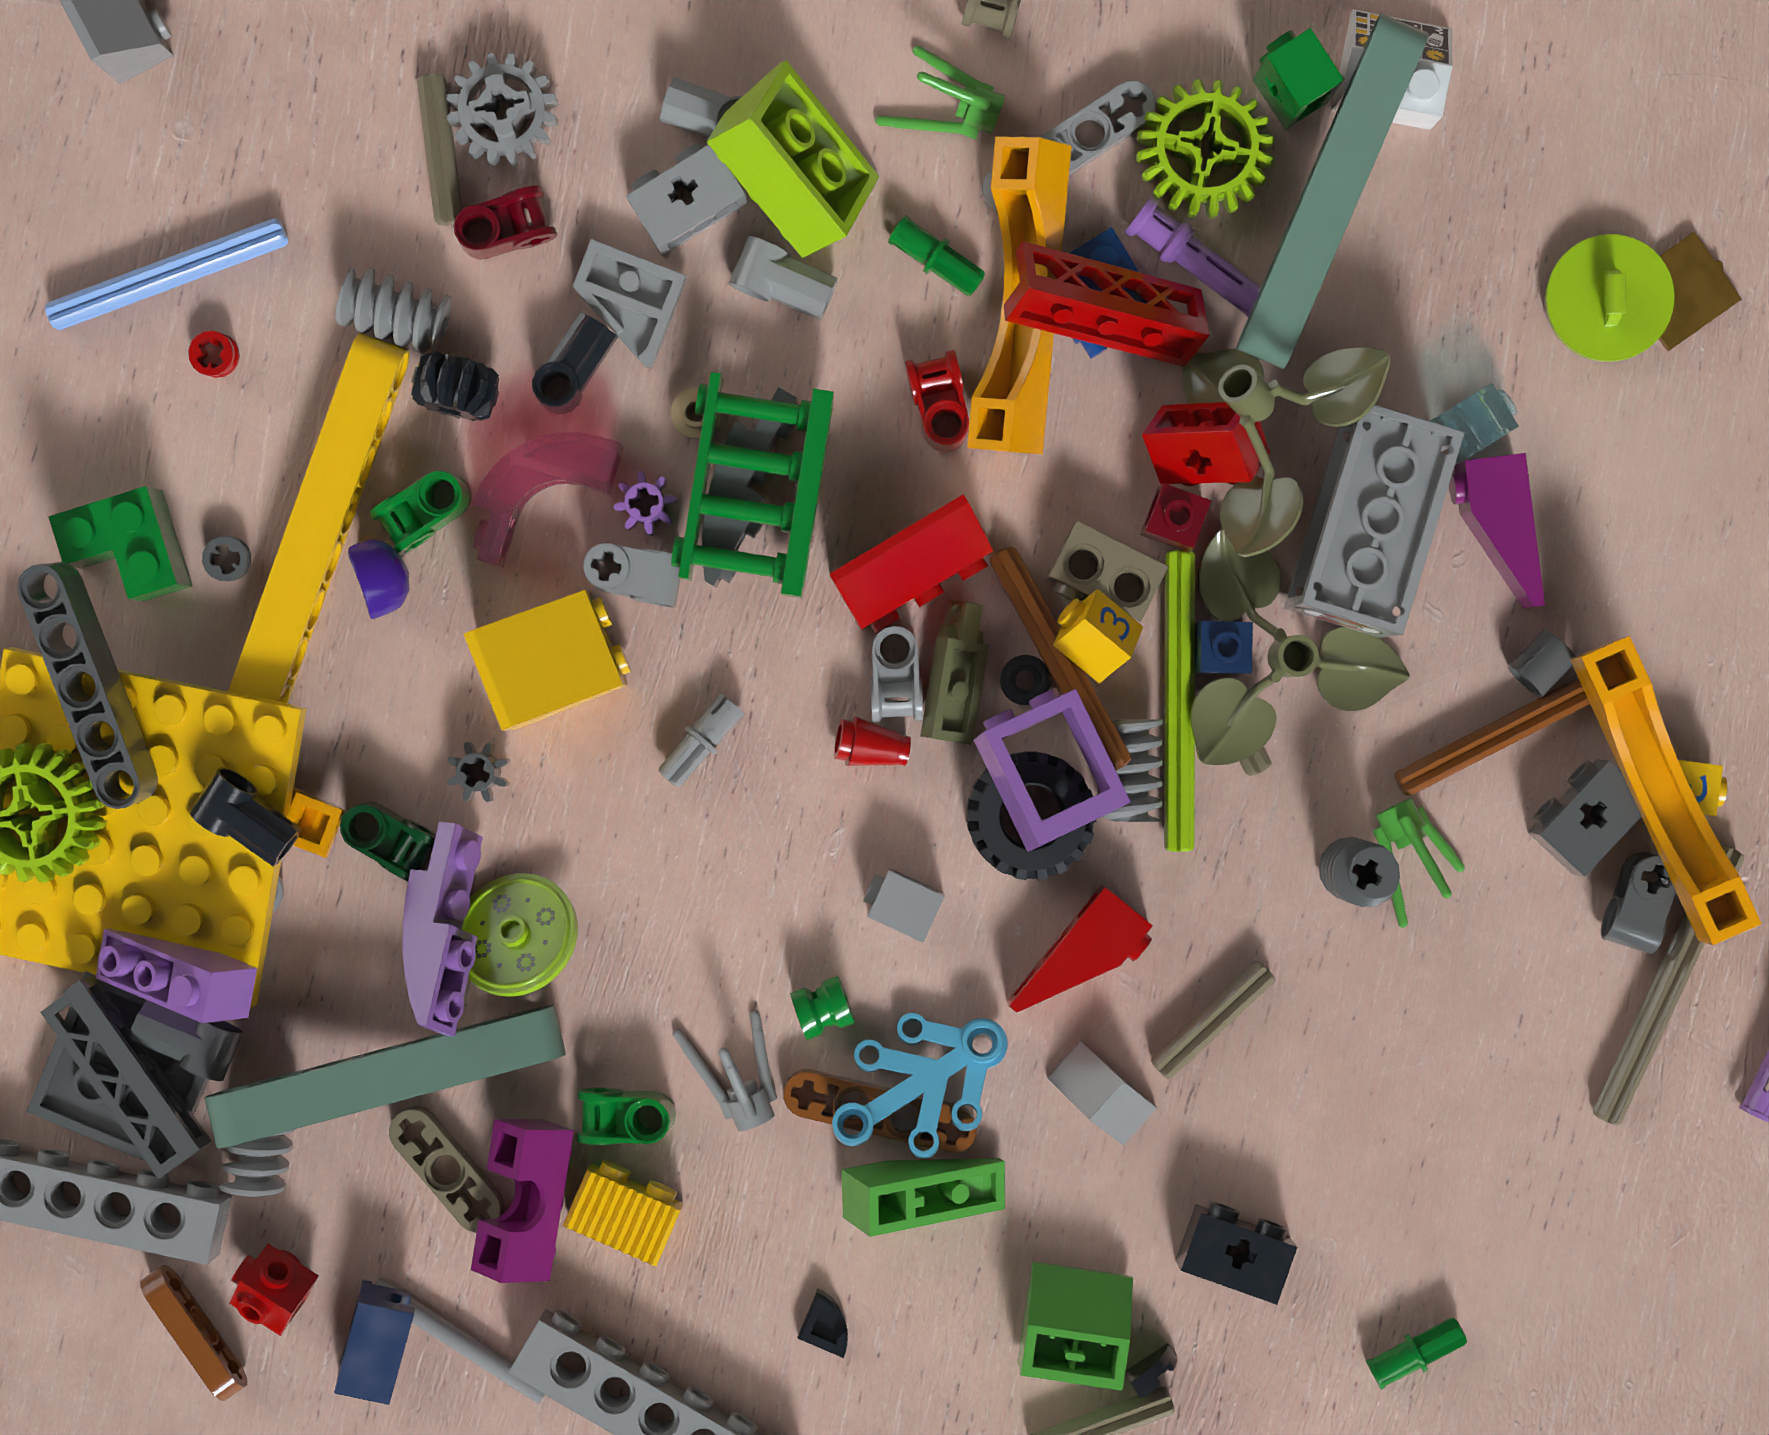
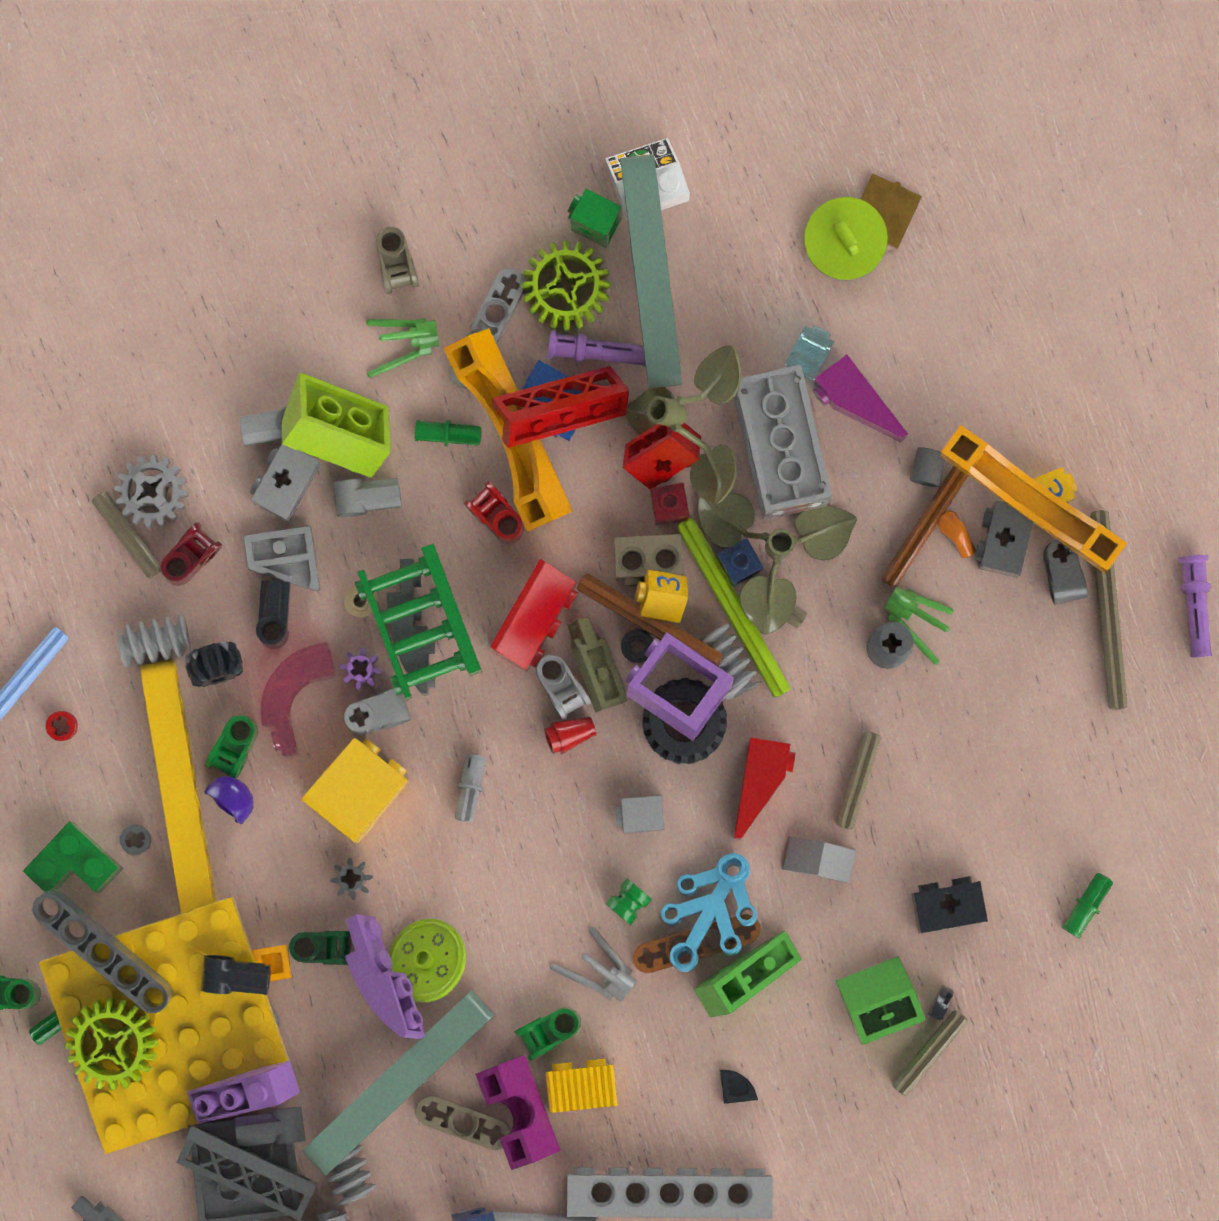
camera: 30 degrees left, 5 degrees down
(1530, 770) = (956, 531): none -> orange arm

